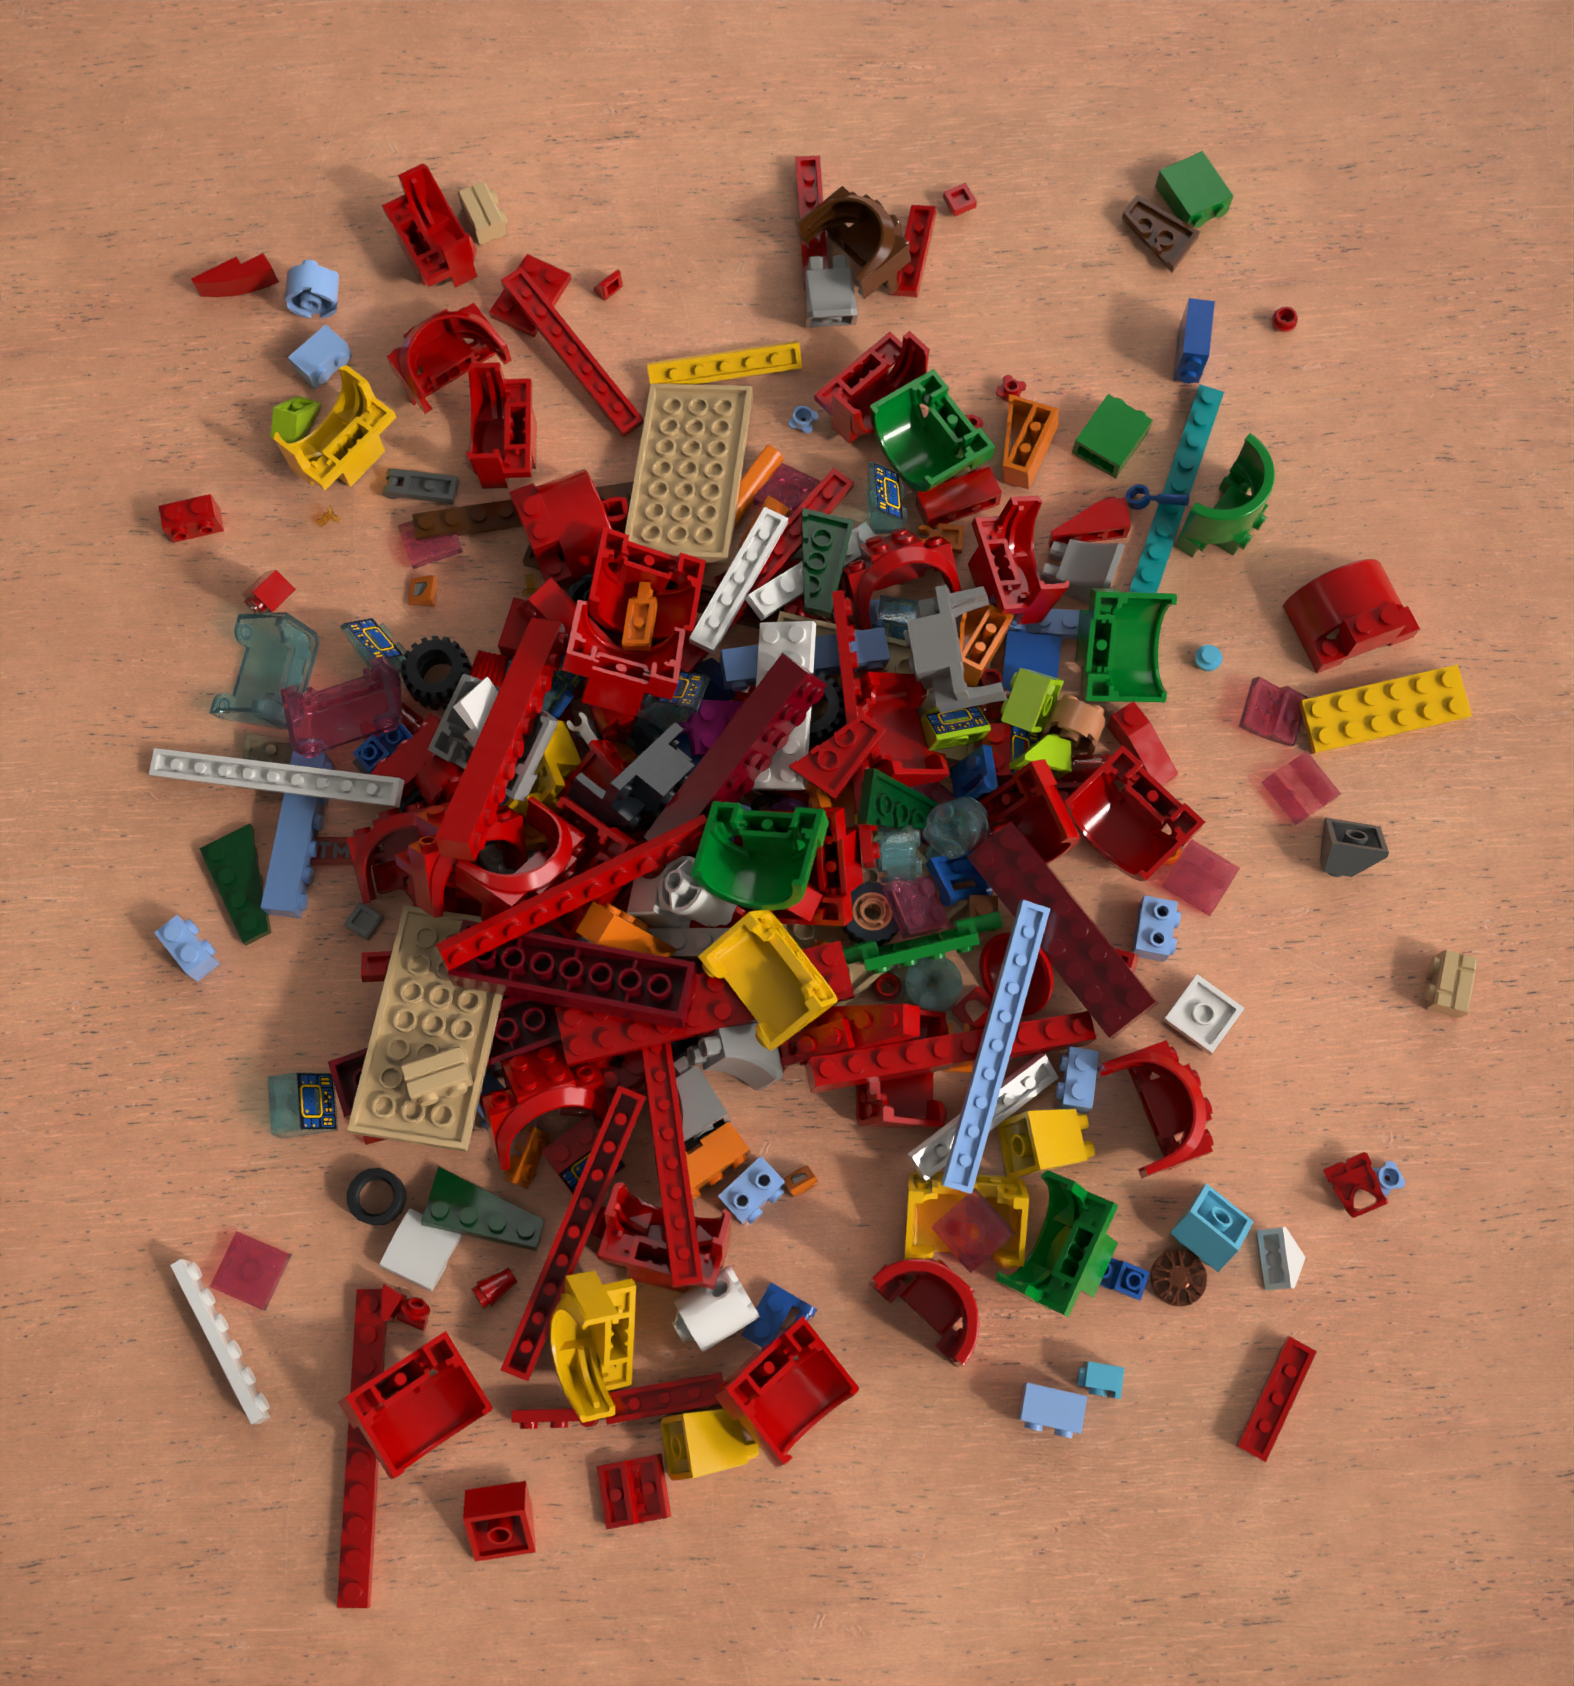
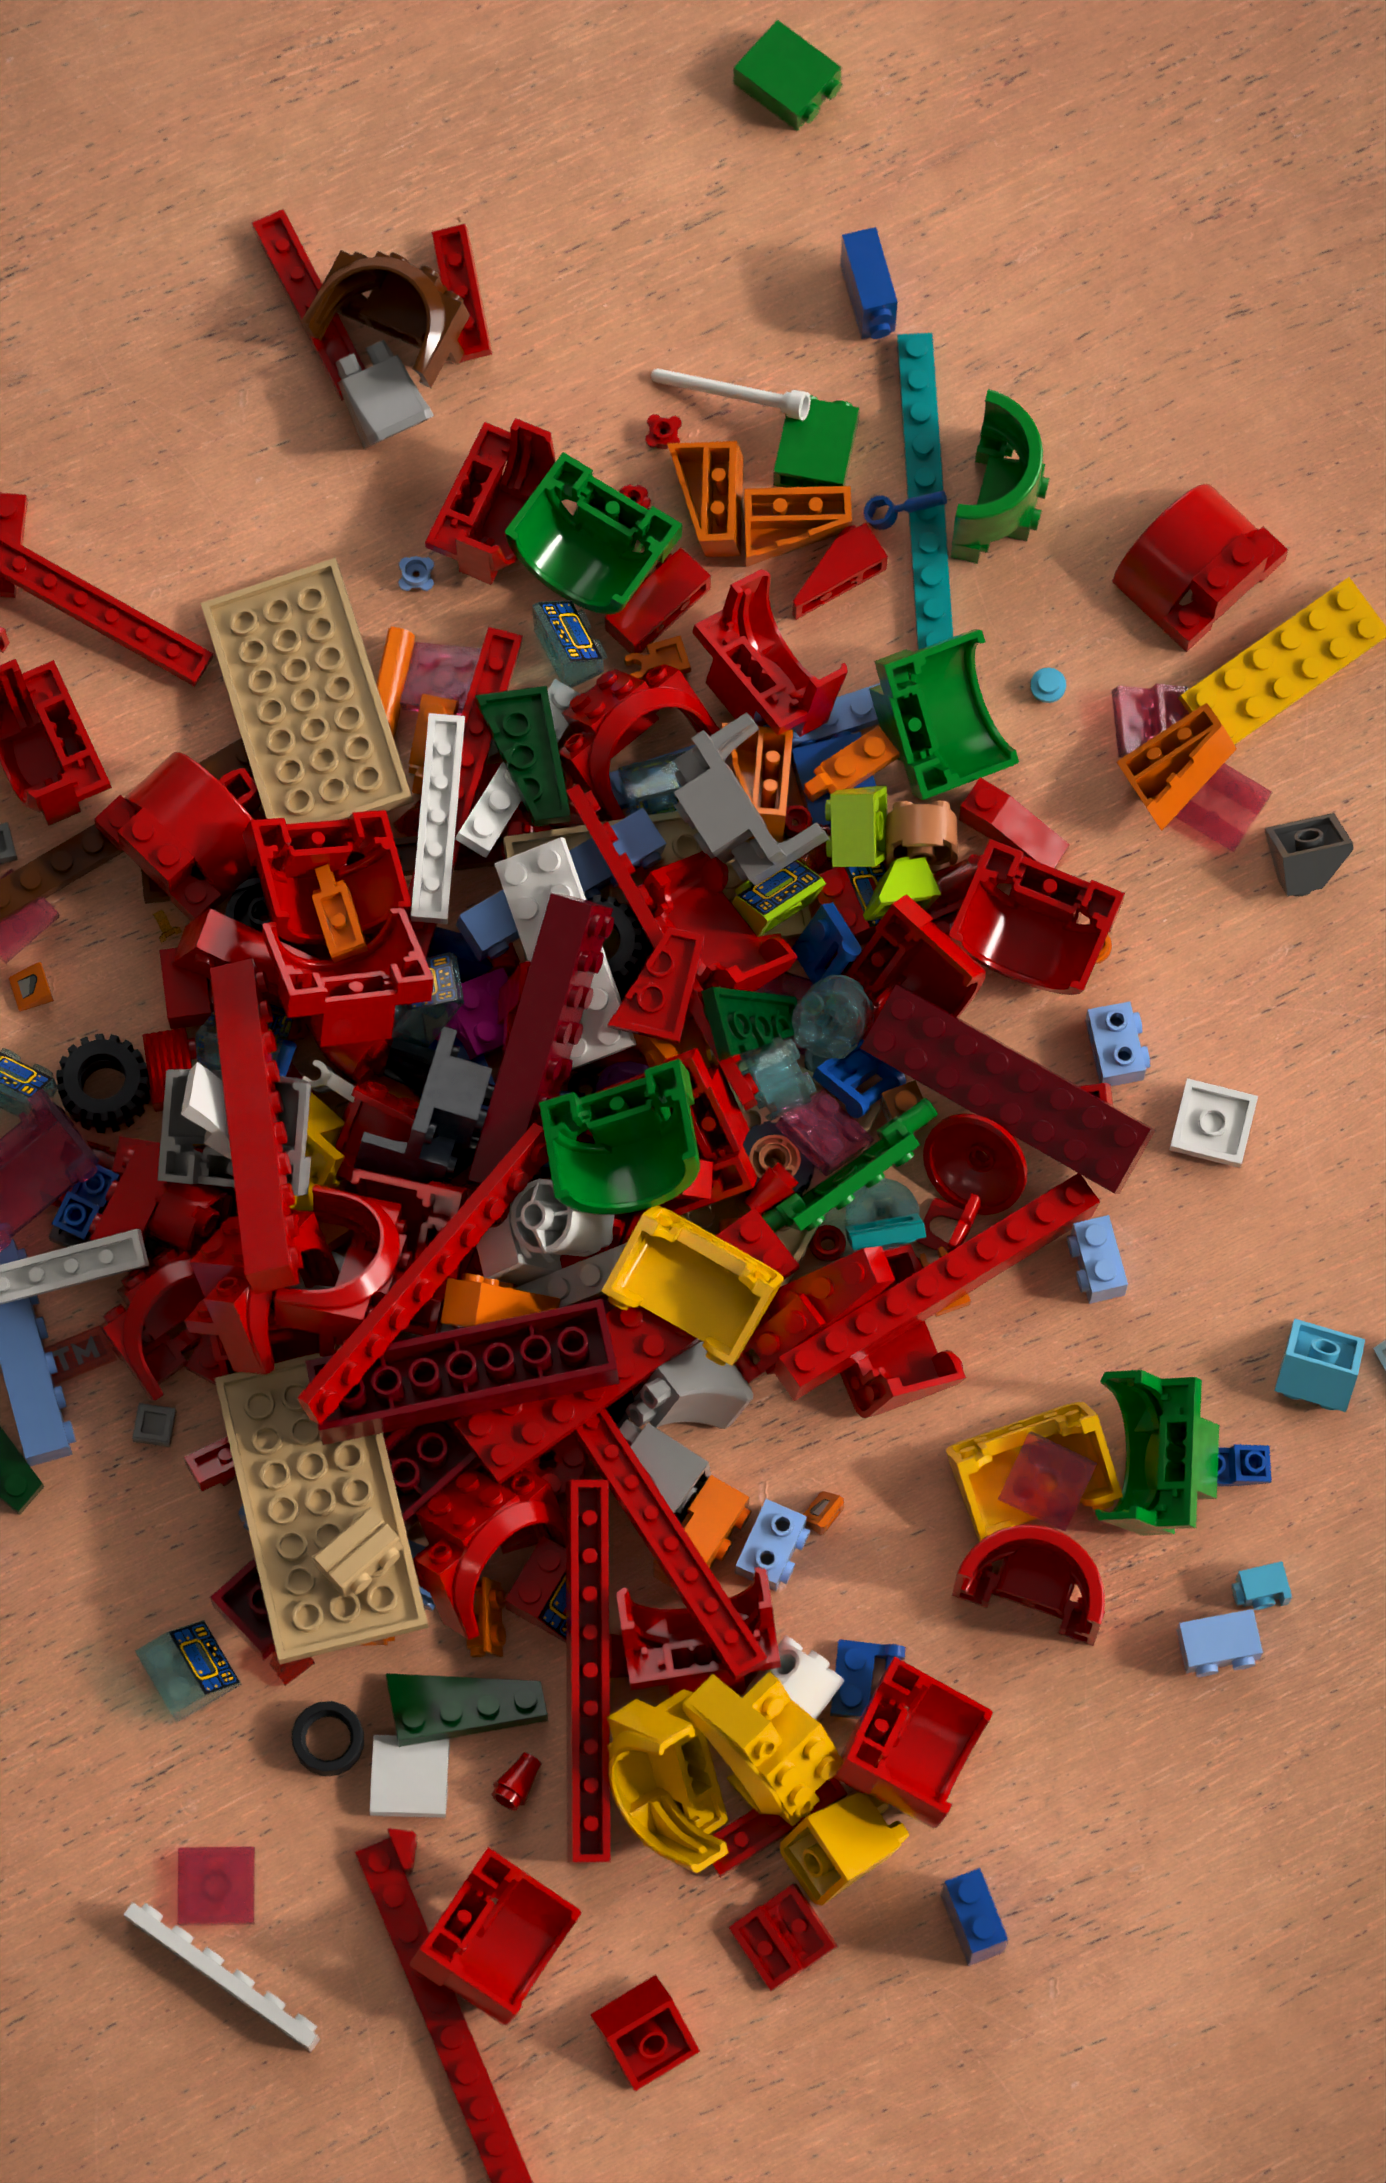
camera: 25 degrees left, 0 degrees up
(414, 1313) = (436, 1850): red plate -> none
(557, 1417) = (658, 1892): red plate -> none
(609, 285) = (82, 490): red slope -> none
(671, 1367) = (768, 1743): none -> yellow piece
(726, 364) = (286, 540): yellow plate -> none
(777, 1546) = (974, 1916): none -> blue brick
(859, 932) = (771, 1188): none -> red cone
(928, 997) = (886, 1231): none -> teal plate
(959, 199) = (490, 200): red plate -> none
(995, 1047) = (987, 1256): light blue plate -> none
(1014, 1093) = (1005, 1346): white plate -> none
(1043, 1141) = (1084, 1344): yellow hips -> none
(1046, 656) = (852, 764): none -> orange hinge
(1075, 476) = (792, 518): none -> orange wedge
(1084, 565) = (851, 632): light grey hips -> none
(1108, 399) = (793, 403): none -> white piece
(1160, 231) = (767, 146): reddish brown wing -> none
(1170, 1103) = (1215, 1241): red piece -> none
(1178, 1277) = (1305, 1439): copper wheel -> none
(1200, 877) = (1145, 960): clear pink slope -> none
(1281, 746) = (1177, 763): none -> orange wedge
(1287, 314) = (970, 197): red plate -> none

